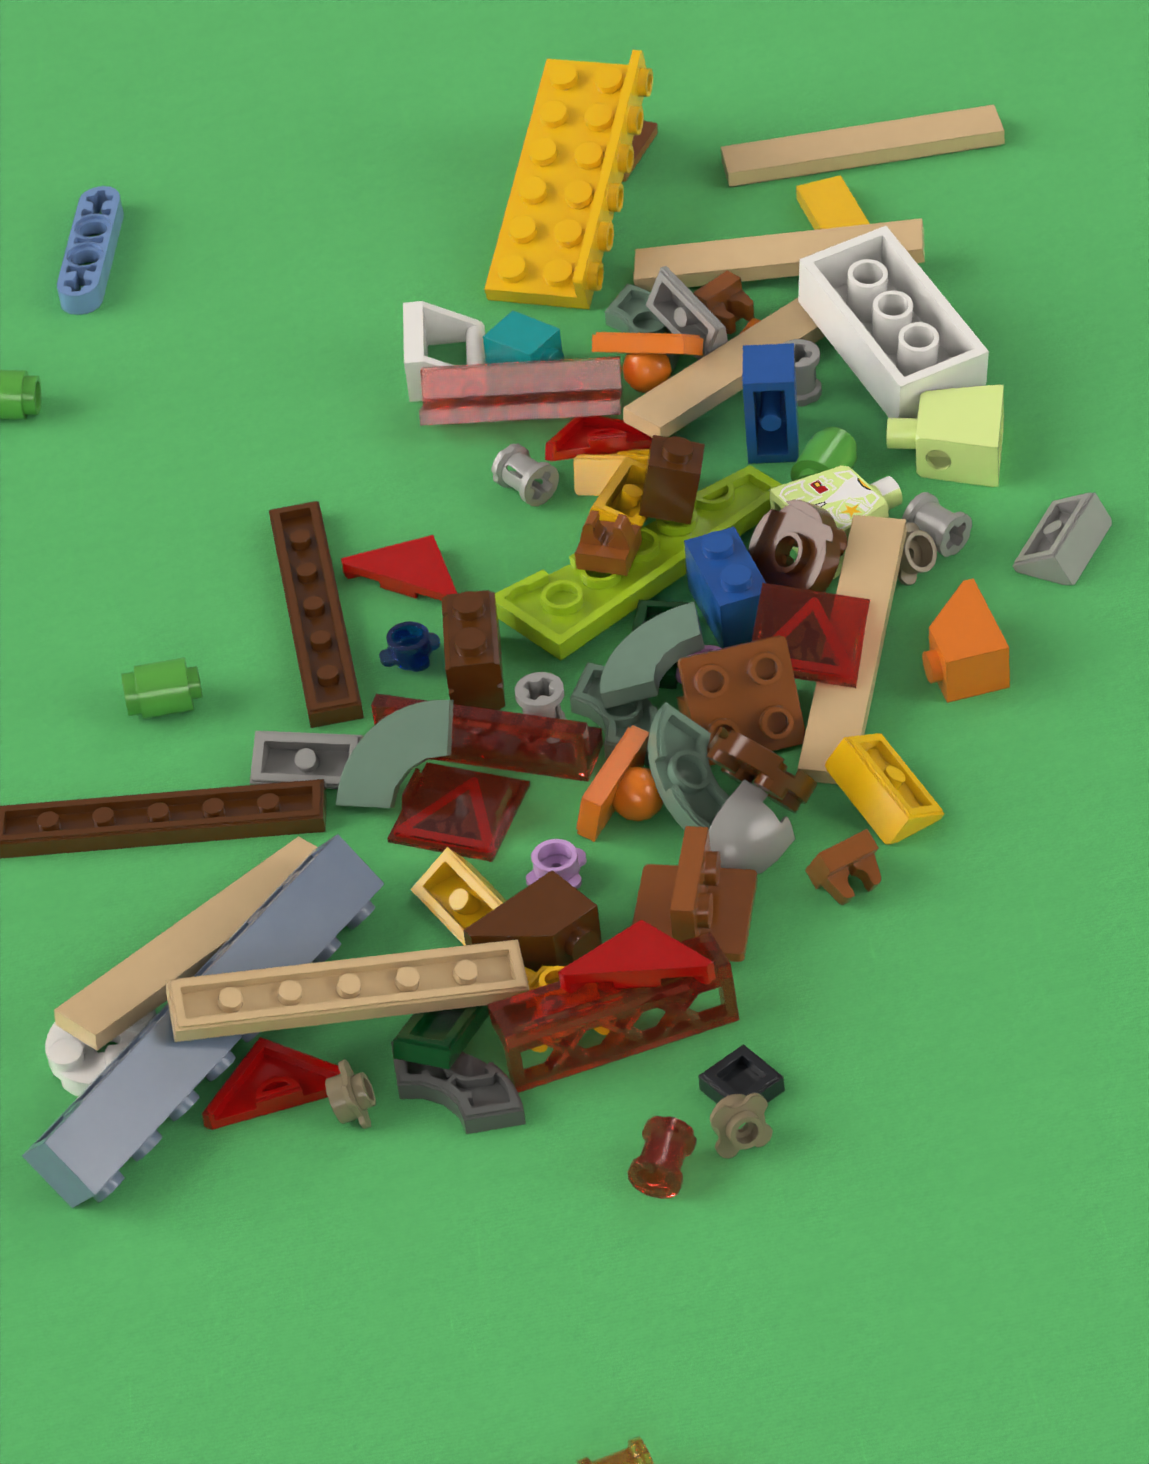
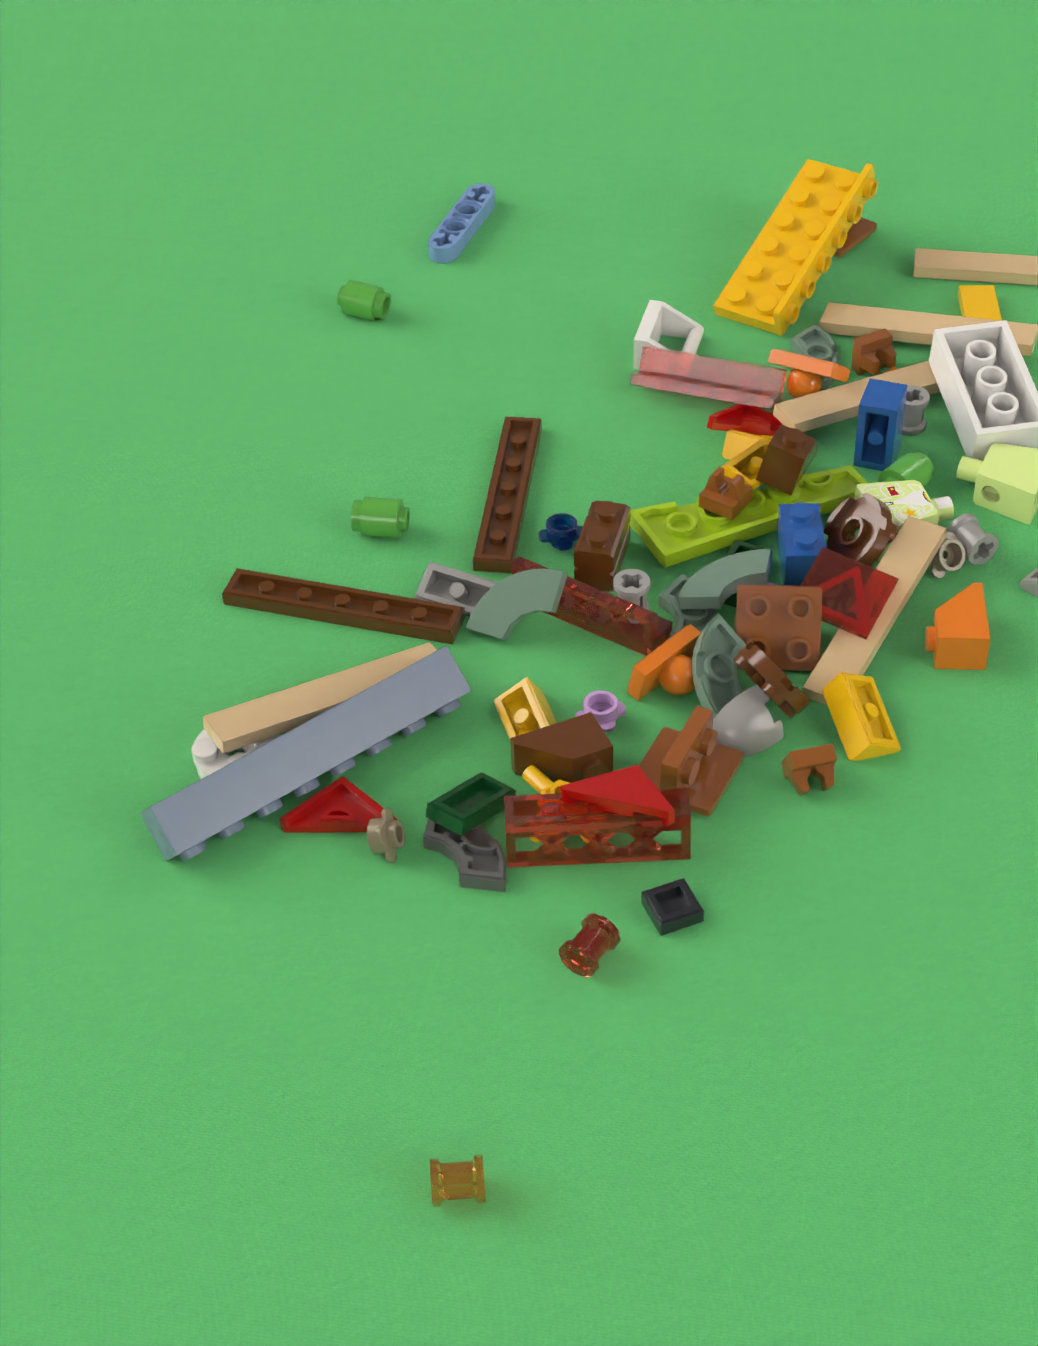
camera: 15 degrees right, 0 degrees up
(344, 990) = (407, 758): tan tile -> none
(404, 568) = (580, 477): red tile -> none
(457, 811) = (549, 654): clear red piece -> none
(521, 340) = (723, 342): teal brick -> none
(524, 477) = (689, 434): light grey bush -> none
(684, 311) = (843, 349): light grey slope -> none
(731, 1114) = (656, 926): dark tan plate -> none

